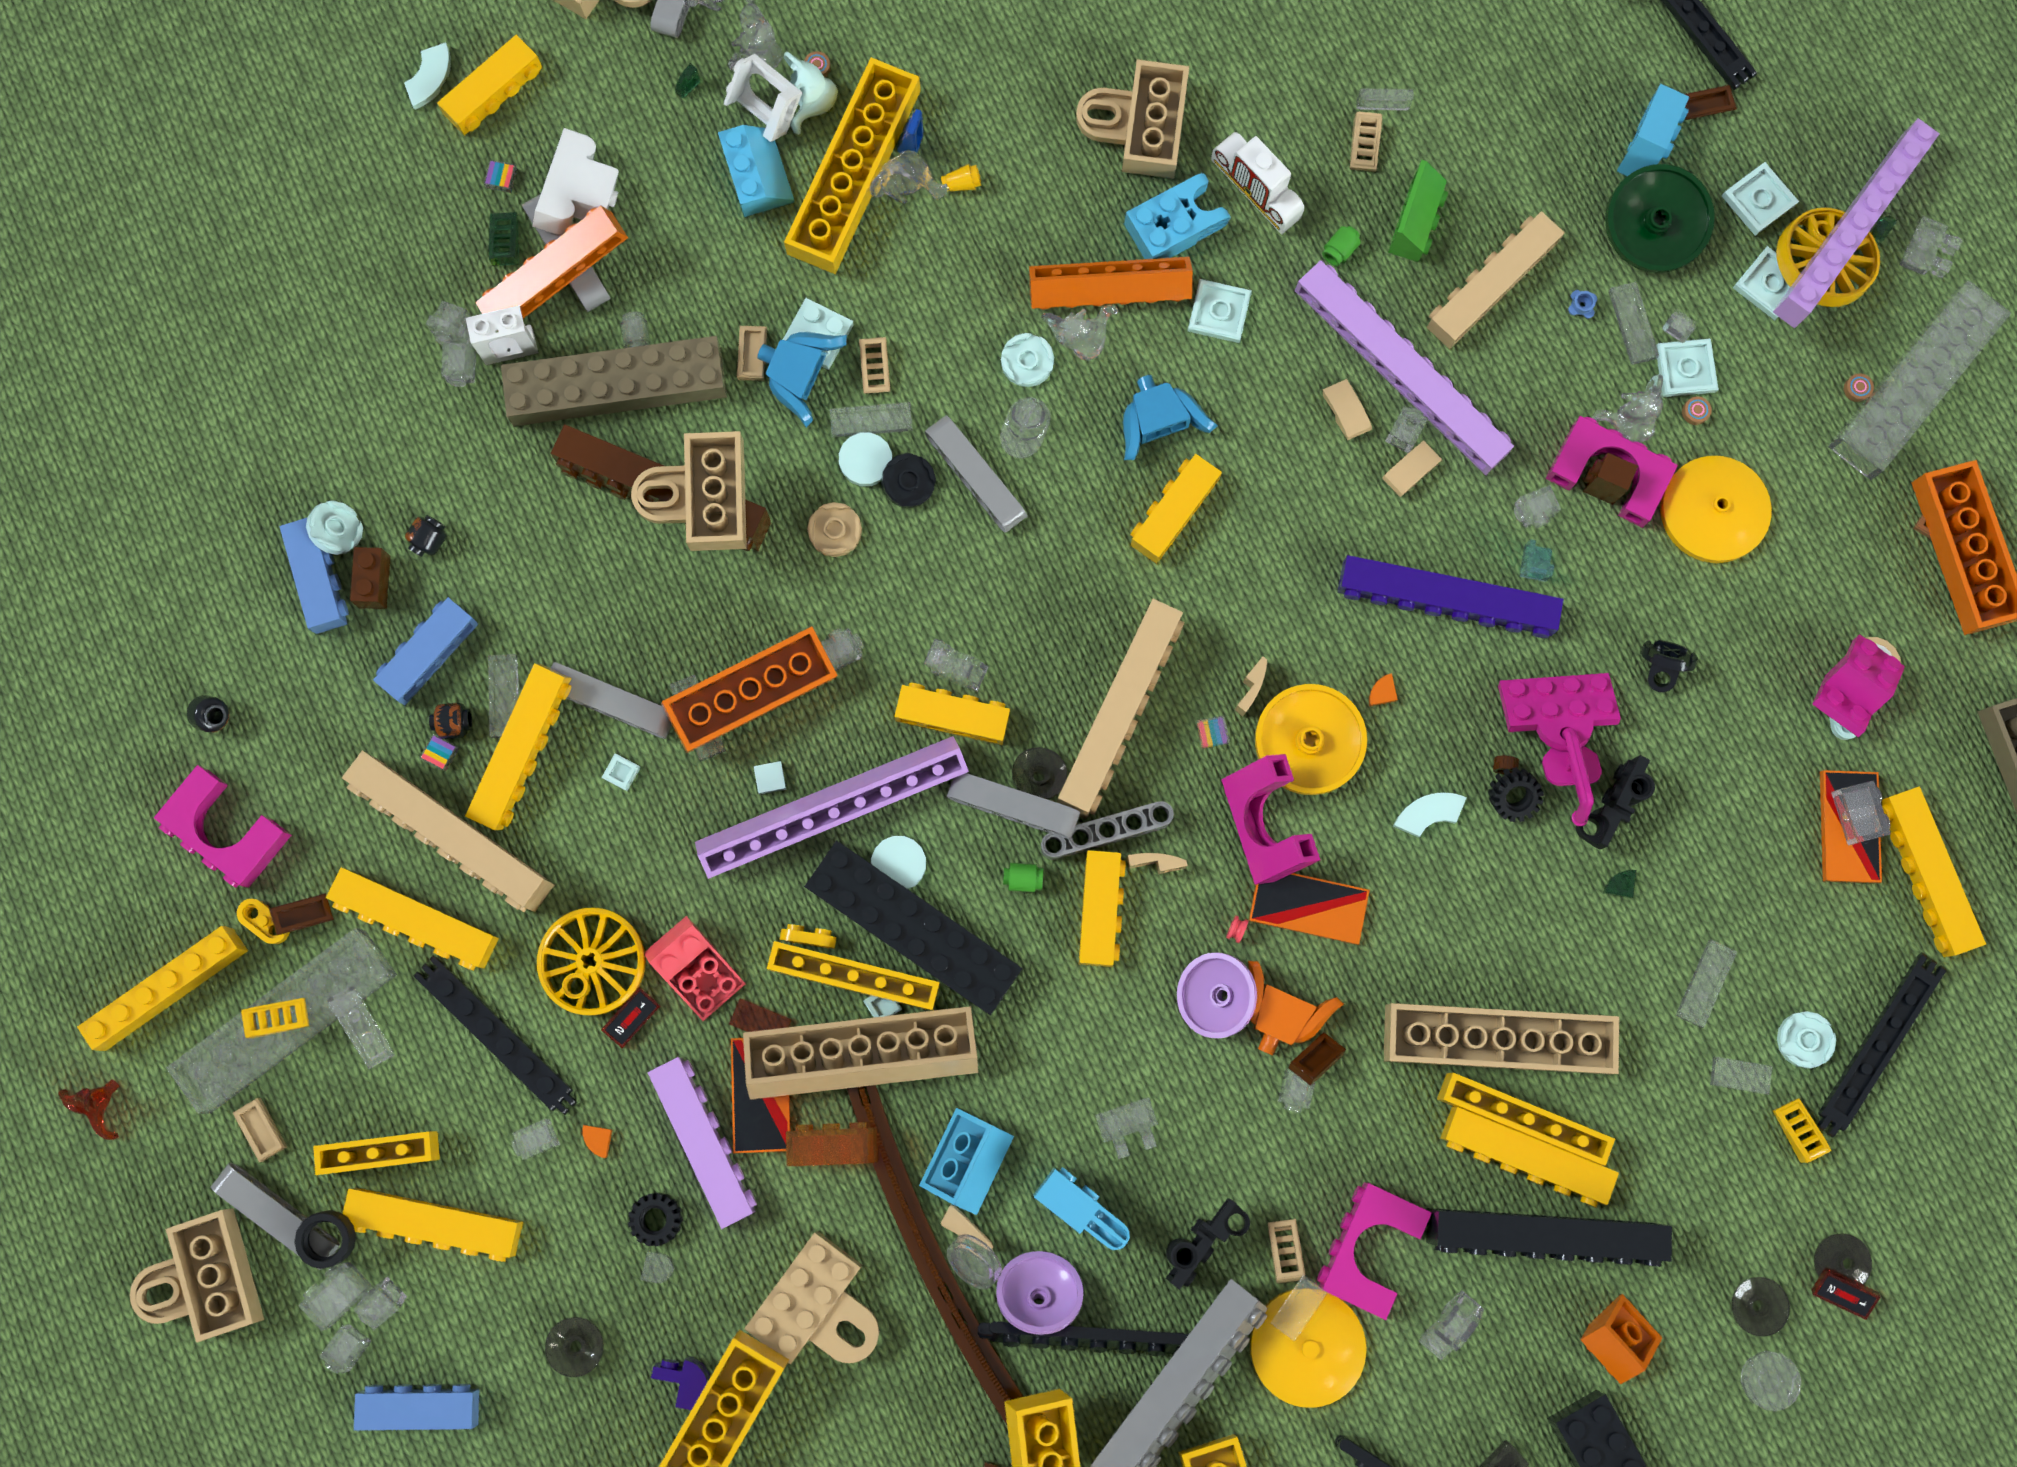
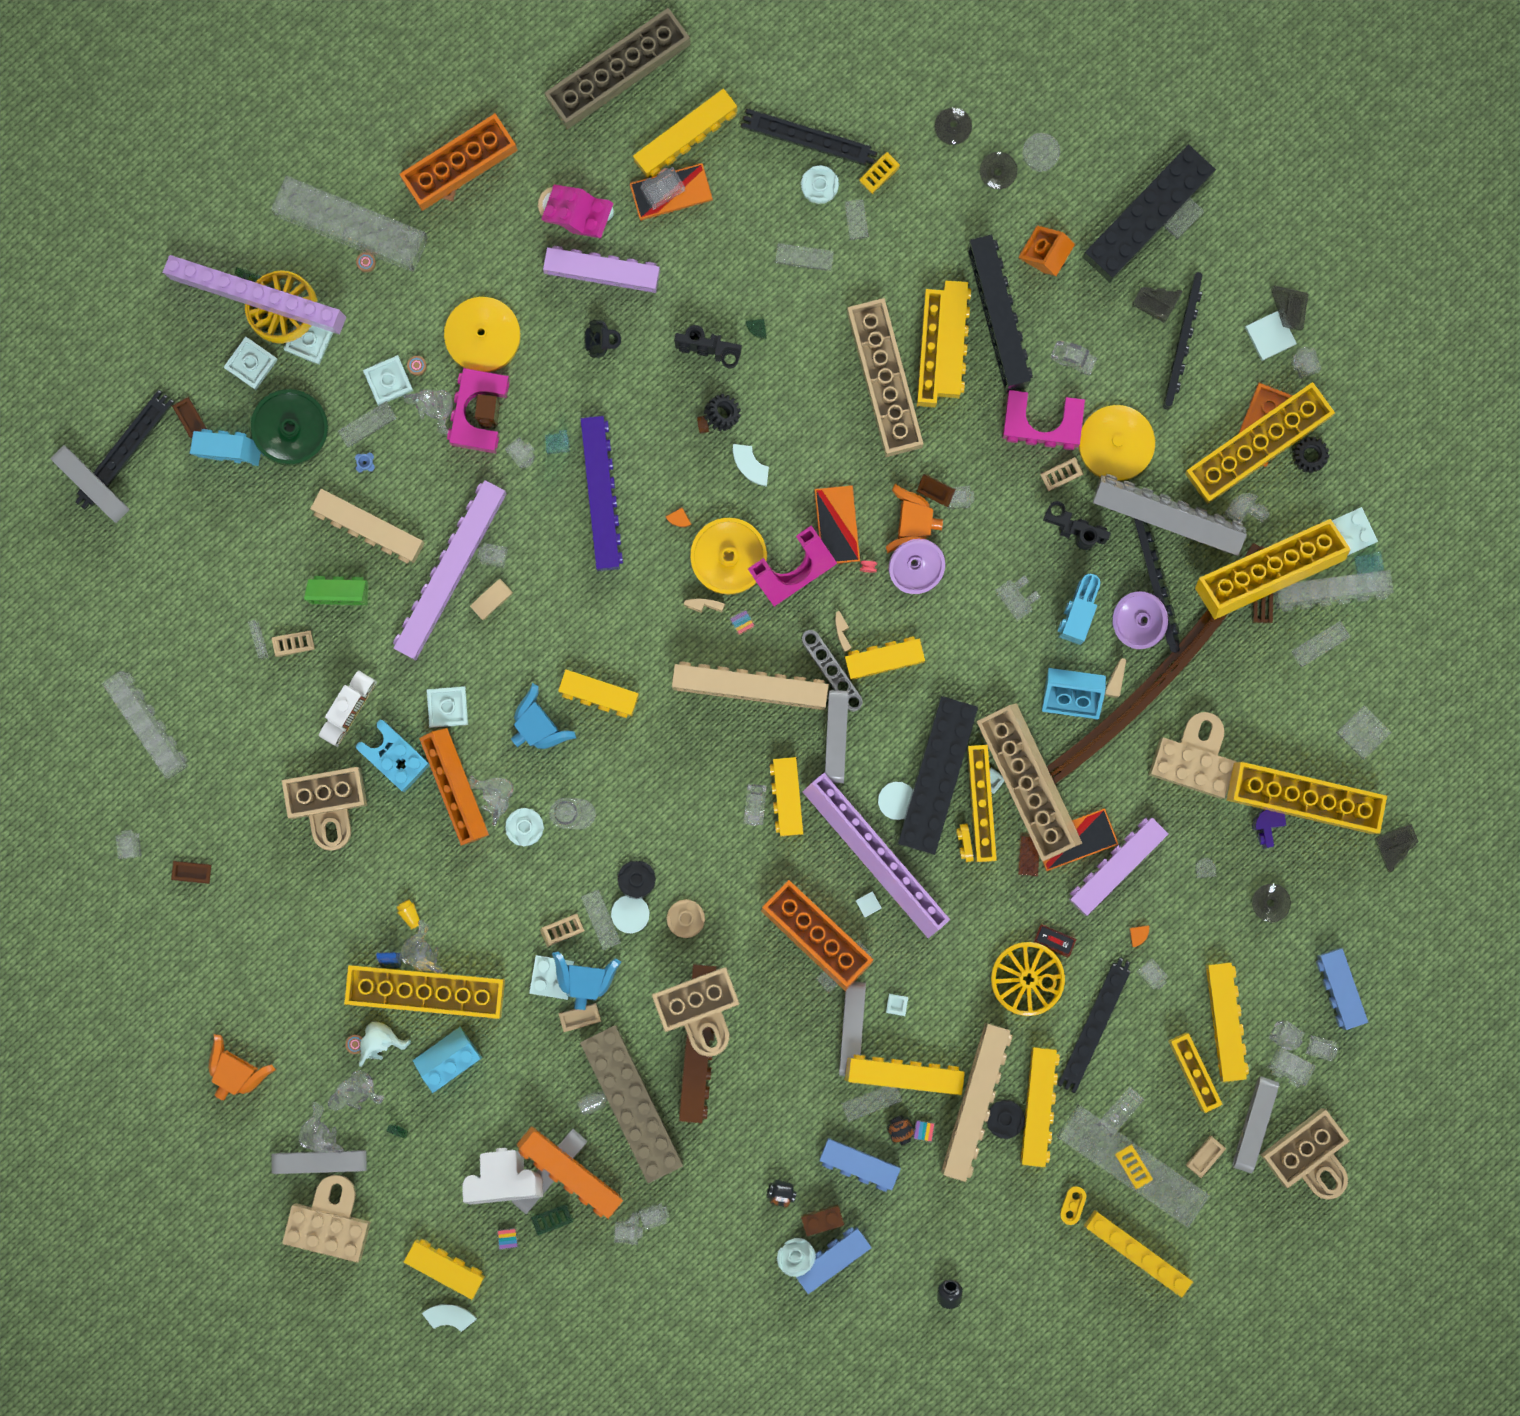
camera: 105 degrees left, 5 degrees up
(93, 1105) = (1226, 1271): clear red piece -> none
(185, 816) = (1024, 1284): dark pink arch -> none
(301, 914) = (1060, 1180): reddish brown tile -> none
(303, 1244) = (1244, 1083): black tyre -> none
(414, 868) = (1005, 1119): none -> black tile
(512, 335) = (627, 1190): white panel -> none
(637, 1219) = (1168, 888): black tyre -> none
(694, 968) = (1009, 910): coral slope -> none
(739, 90) = (393, 1088): white panel -> none
(831, 1145) = (1093, 781): clear orange brick -> none
(842, 648) = (766, 885): clear brick -> none
(974, 1261) = (1135, 667): clear piece -> none
(975, 474) = (617, 835): light grey beam -> none
(1023, 877) = (880, 715): bright green brick -> none
(1041, 762) = (799, 726): clear smoke dish -> none
(1299, 1307) = (1095, 455): clear tile -> none
(1341, 245) = (375, 637): bright green brick -> none
(1411, 468) = (519, 544): tan slope -> none
(1564, 717) = (653, 397): dark pink plate -> none
(1679, 326) = (360, 392): clear slope -> none
(1764, 695) = (601, 270): none -> lavender brick
(1845, 1293) = (972, 120): tile -> none
(1923, 247) = (251, 244): clear plate -> none

